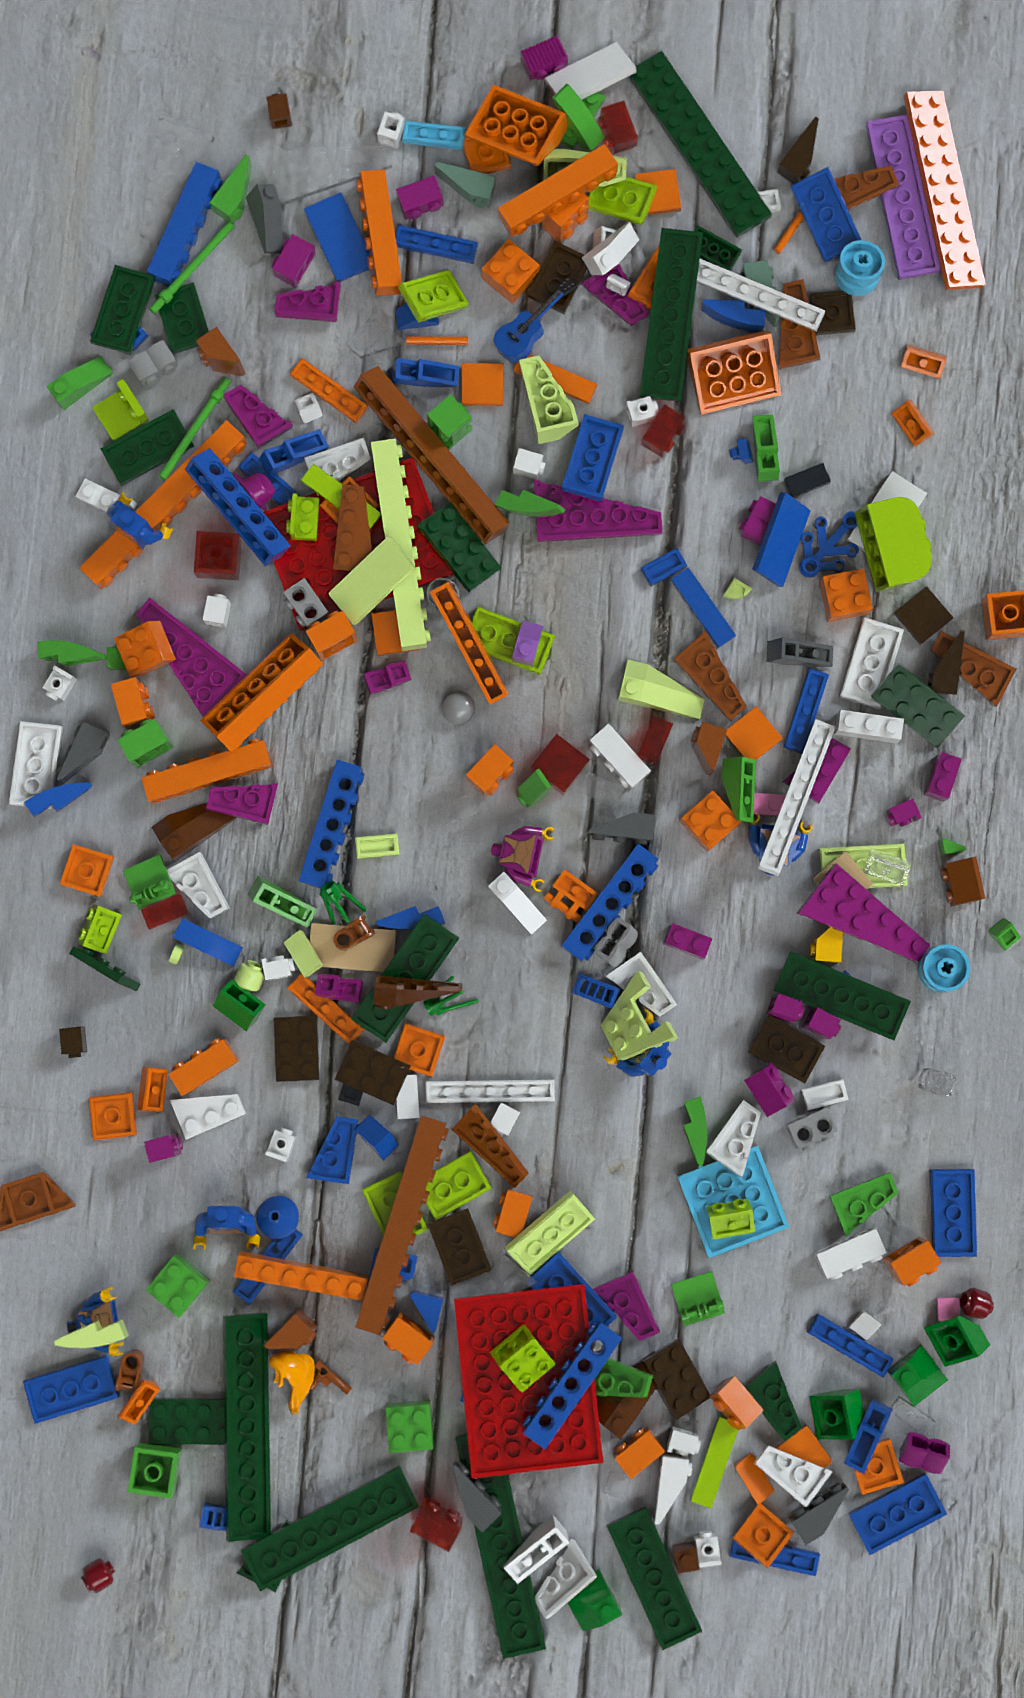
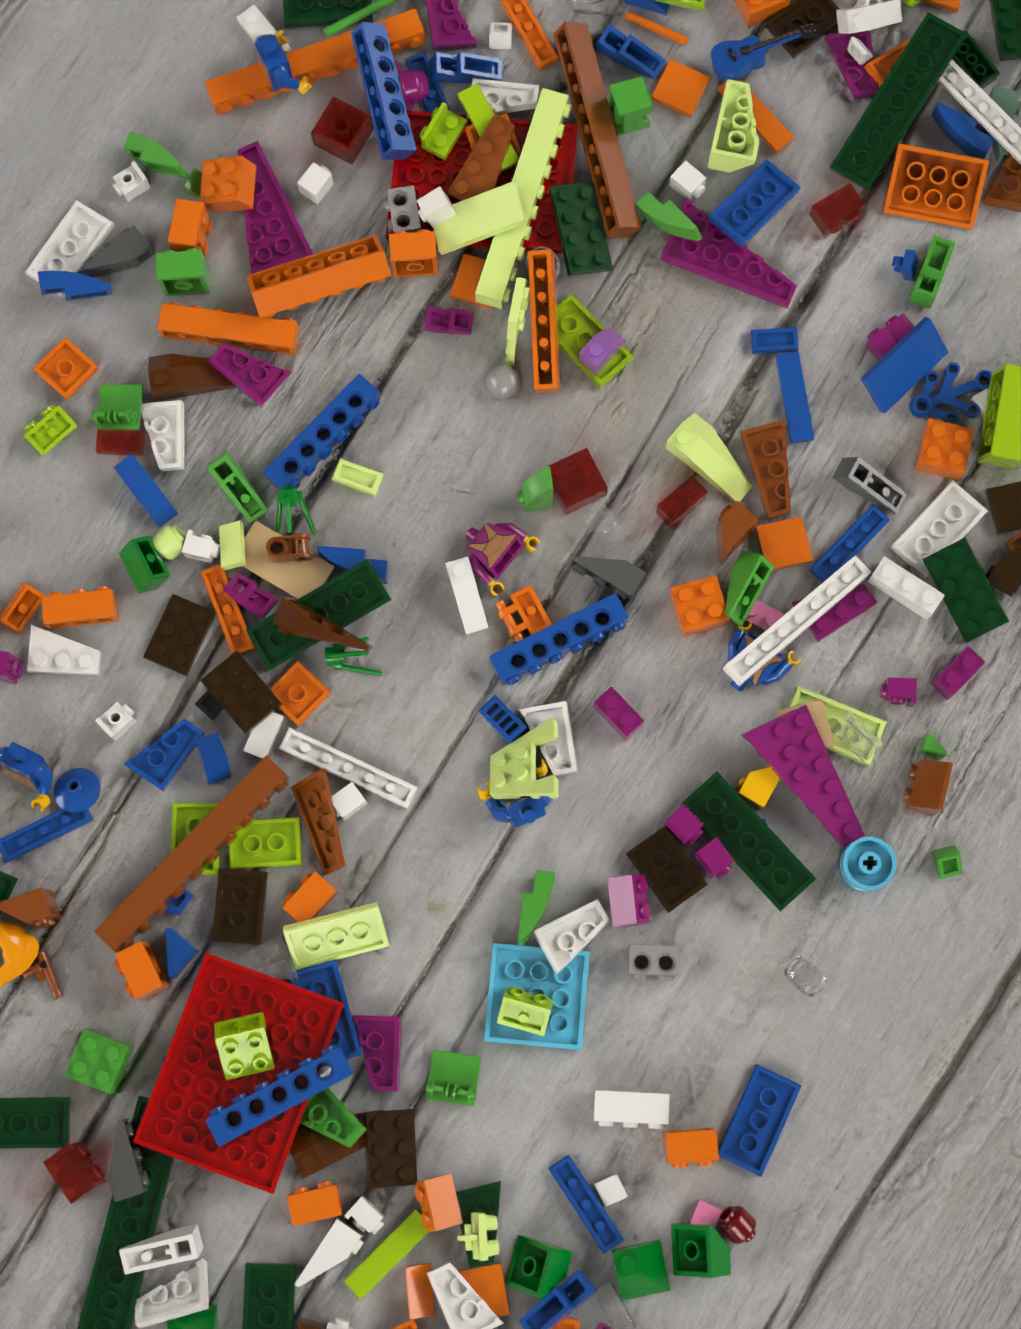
camera: 30 degrees right, 5 degrees down
(102, 966) = (32, 464): dark green wing -> none
(176, 954) = (110, 487): yellowish green tile -> none
(301, 1275) = (67, 855): orange brick -> none
(332, 588) = (435, 207): none -> white brick
(447, 651) = (516, 318): none -> yellowish green wing
(490, 771) = (503, 454): orange brick -> none
(614, 945) = (546, 679): light grey brick -> none
(618, 757) = (638, 502): white brick -> none
(640, 417) = (818, 184): white brick -> none
(737, 590) = (836, 396): yellowish green tile -> none
(779, 1414) = (476, 1236): none -> yellowish green hips
(807, 480) = (959, 322): black tile -> none
(824, 1094) = (683, 934): white tile -> none
(862, 1200) = (670, 1060): bright green wing -> none

